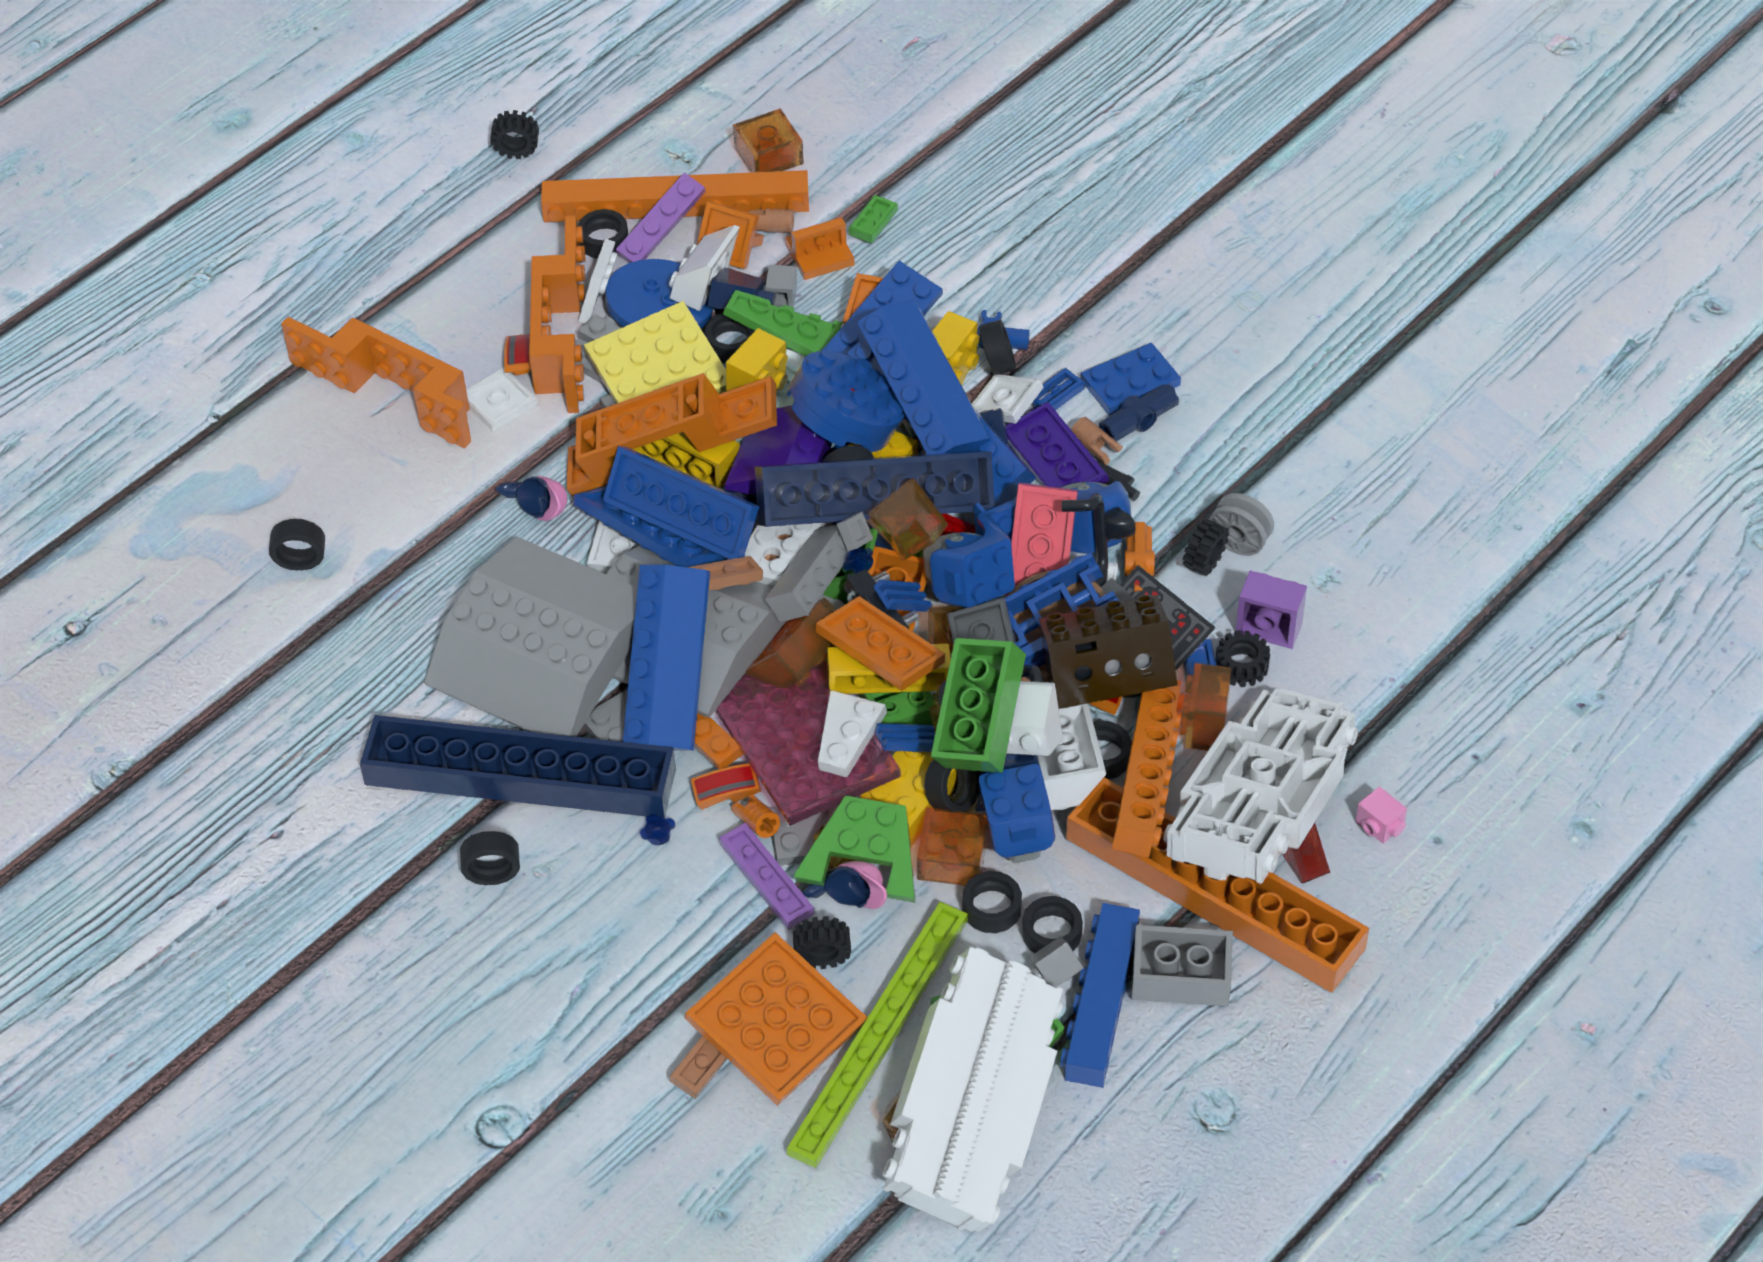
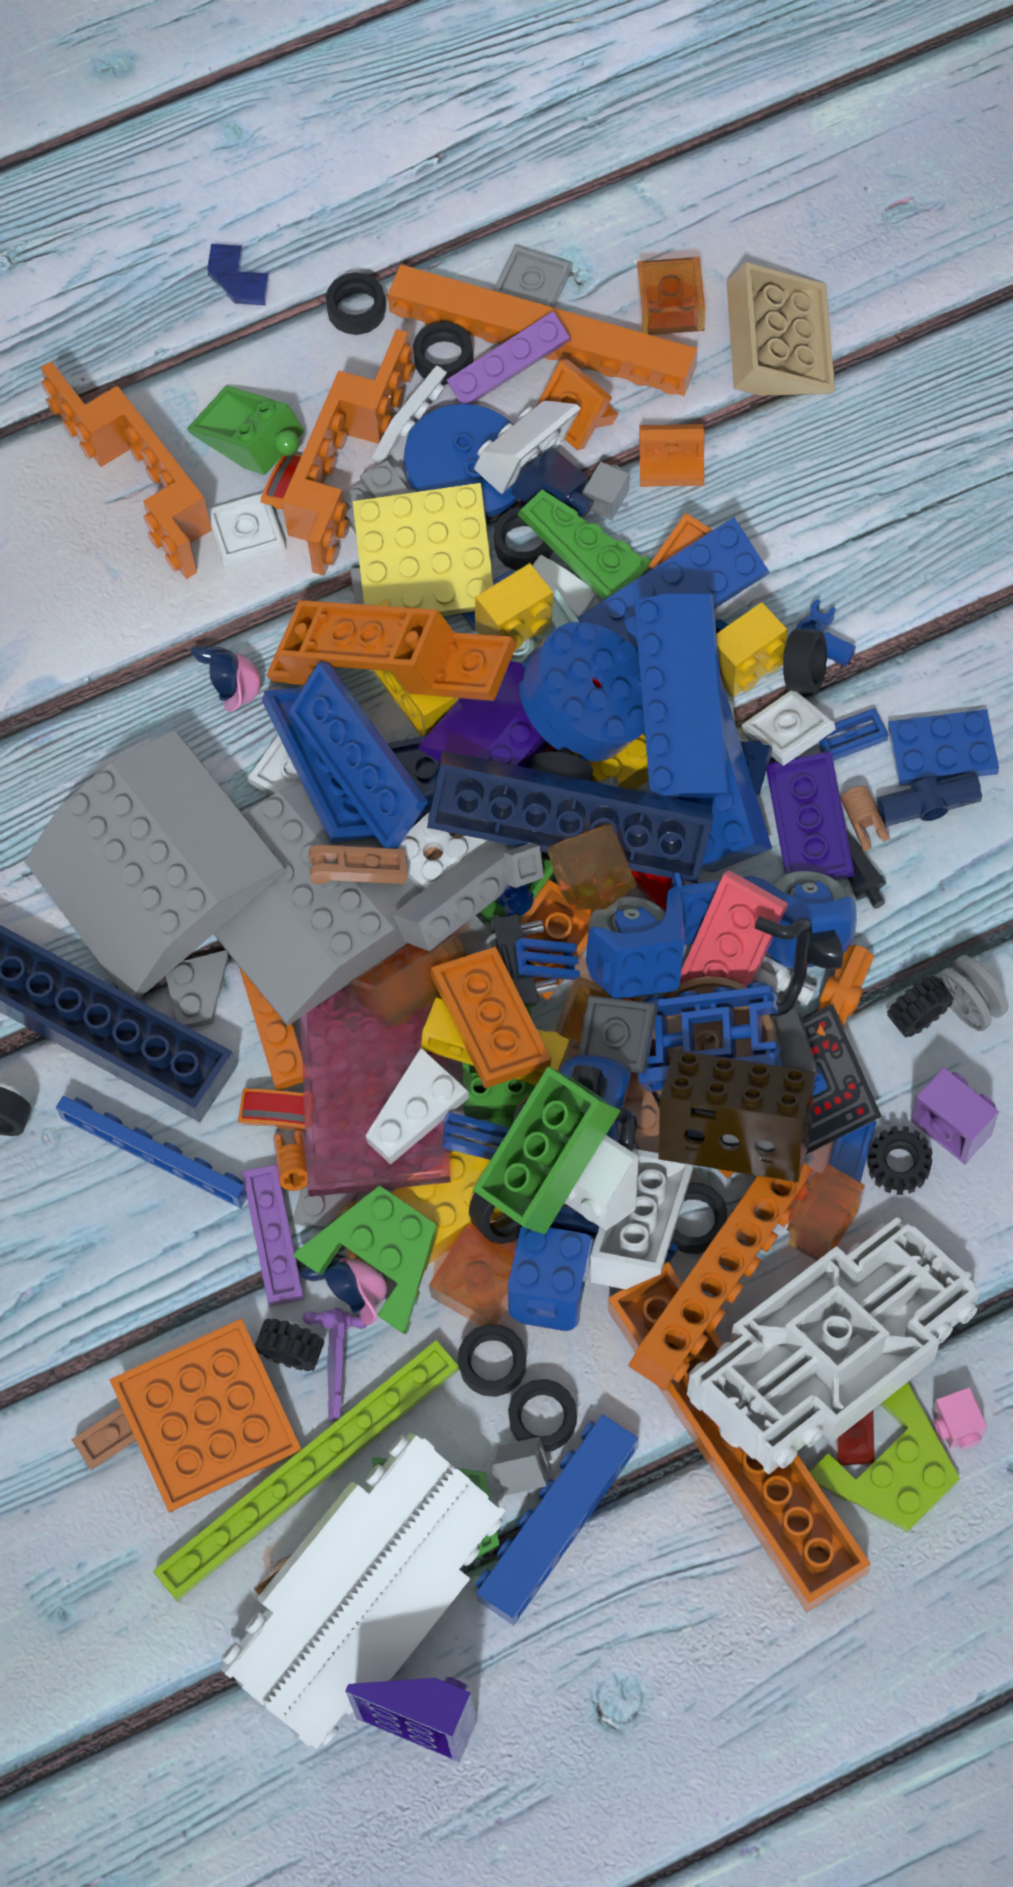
camera: 25 degrees right, 15 degrees up
(414, 238) = (240, 287): none -> clear blue tile
(469, 328) = (248, 429): none -> bright green slope
(516, 235) = (355, 283): none -> black tyre
(517, 124) = (397, 190): black tyre -> none
(635, 849) = (140, 1144): none -> blue plate
(650, 162) = (533, 276): none -> light grey tile
(659, 836) = (190, 1143): clear blue plate -> none
(666, 656) = (262, 945): blue slope -> none
(775, 220) = (634, 397): nougat hinge -> none
(862, 942) = (337, 1323): none -> medium lavender piece
(863, 147) = (779, 333): none -> tan slope
(873, 219) = (748, 433): bright green plate -> none
(1064, 1154) = (421, 1711): none -> dark purple slope
(1182, 965) = (654, 1521): light grey brick -> none
(1360, 871) = (905, 1477): none -> lime wing

